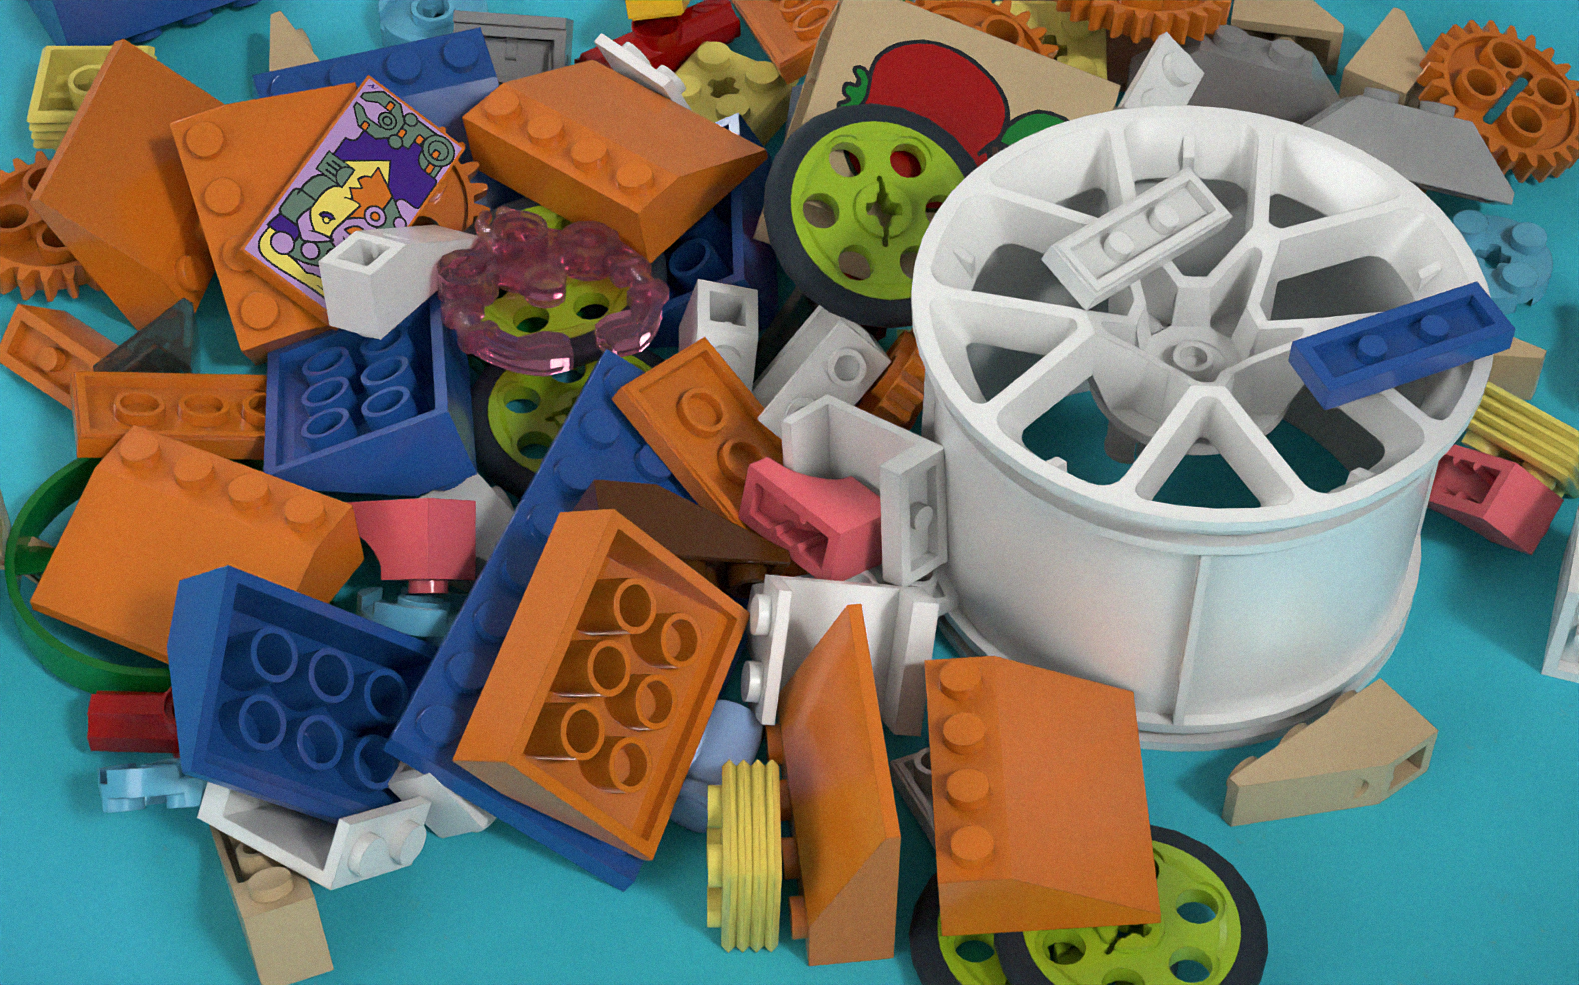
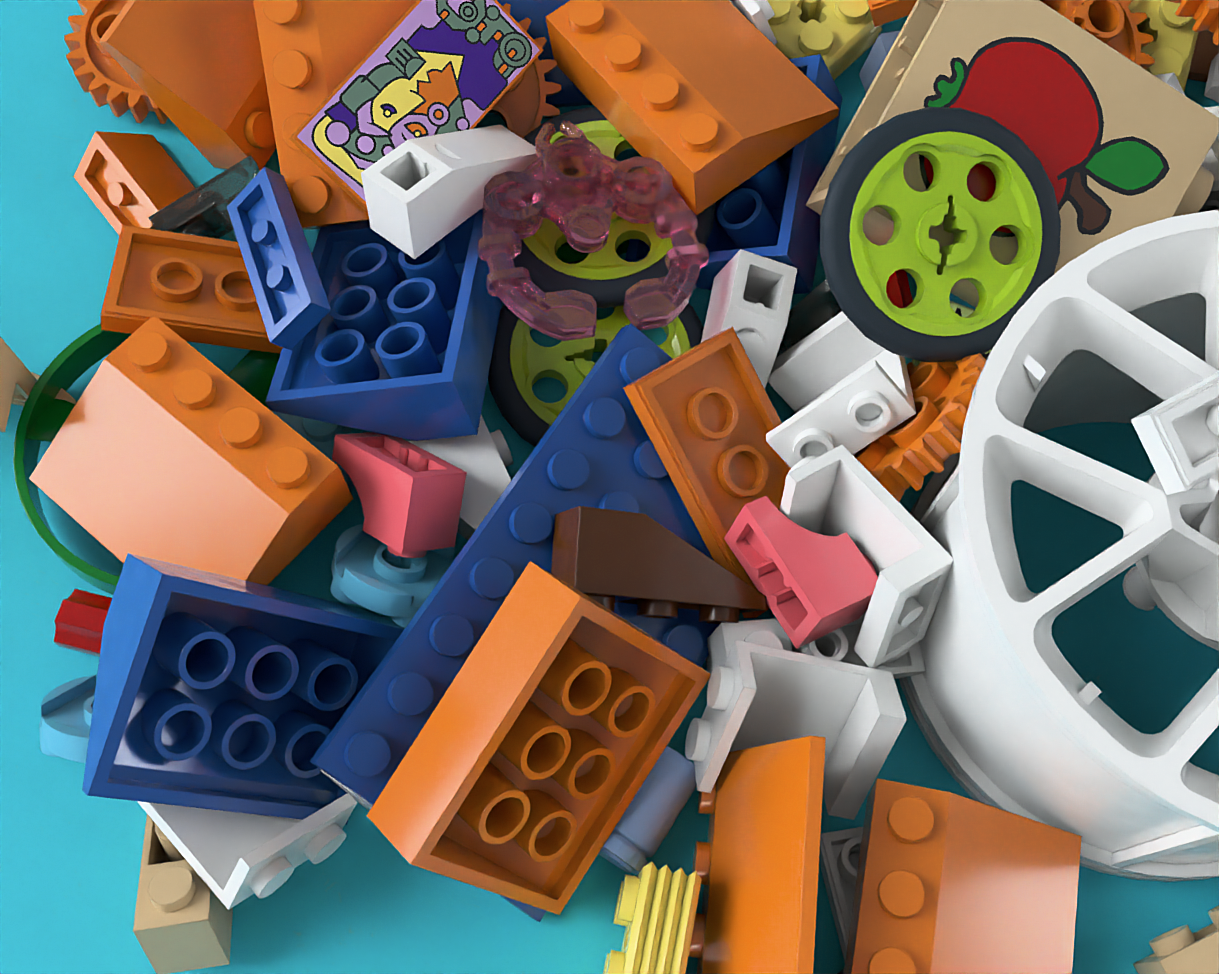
camera: 10 degrees right, 20 degrees up
(243, 364) = (278, 259): none -> blue plate

